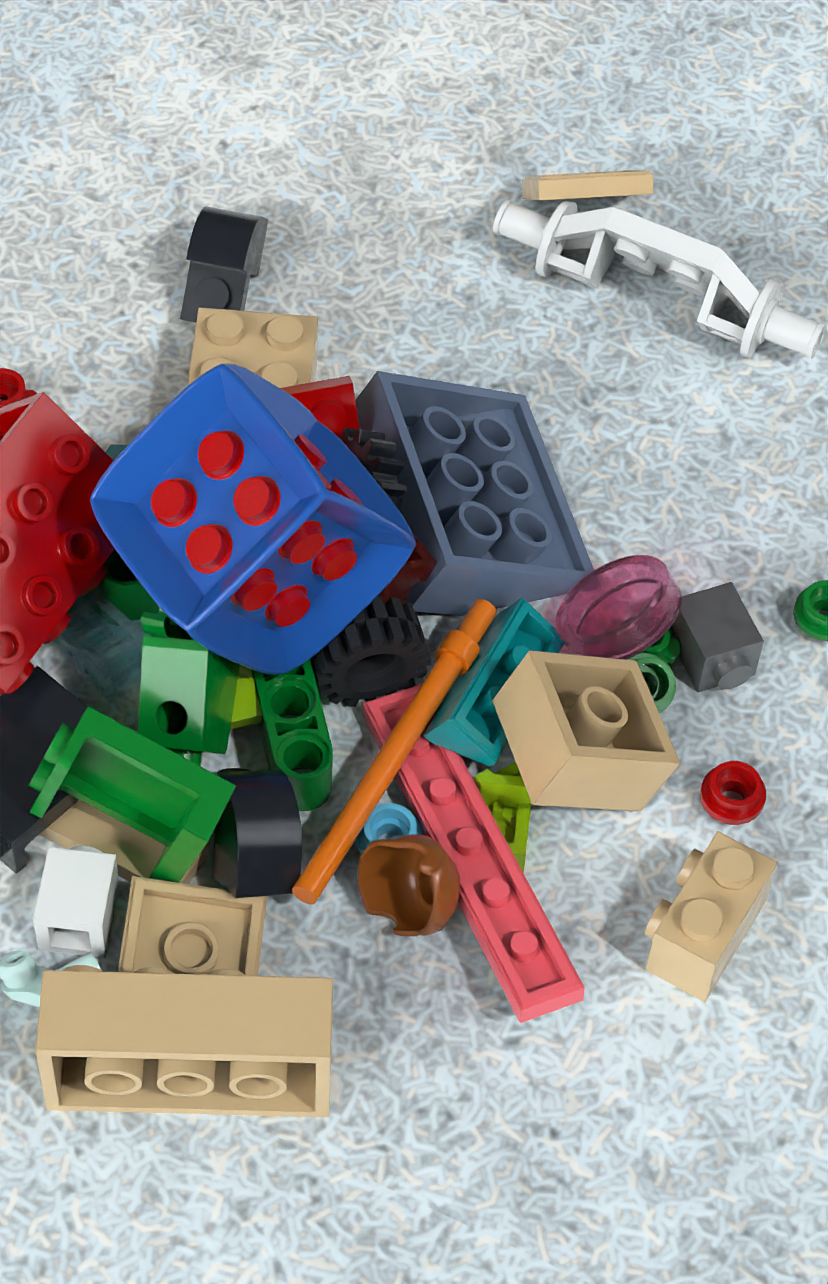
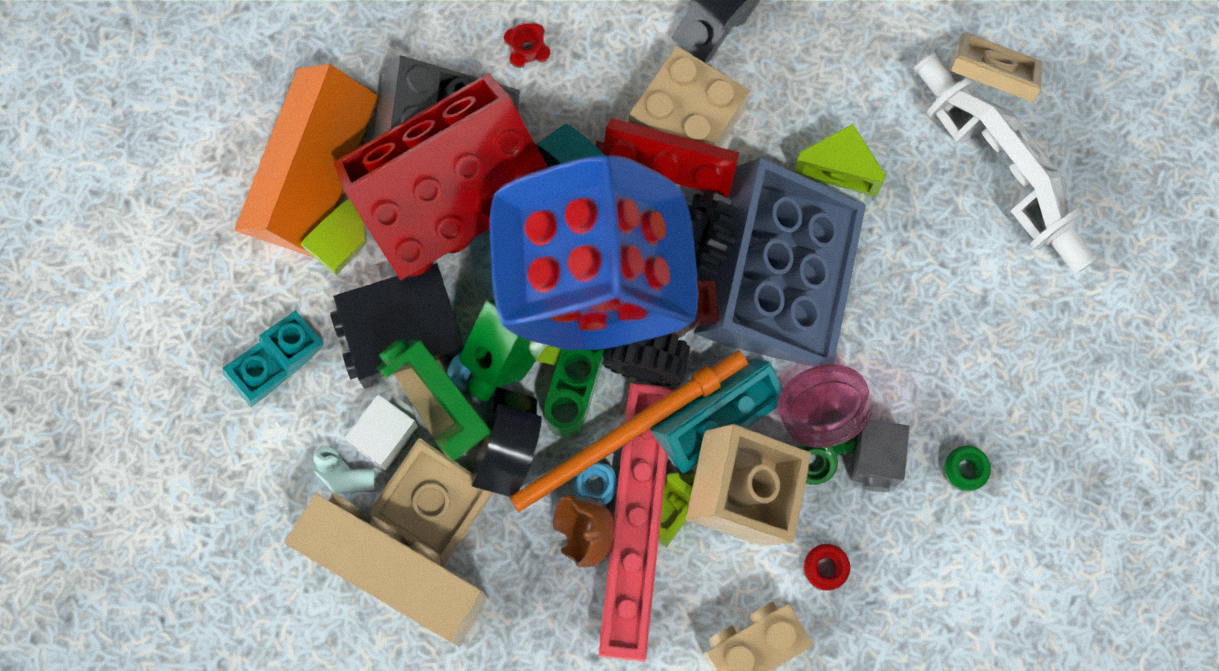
camera: 30 degrees right, 20 degrees up
(477, 354) = (842, 162): none -> lime slope

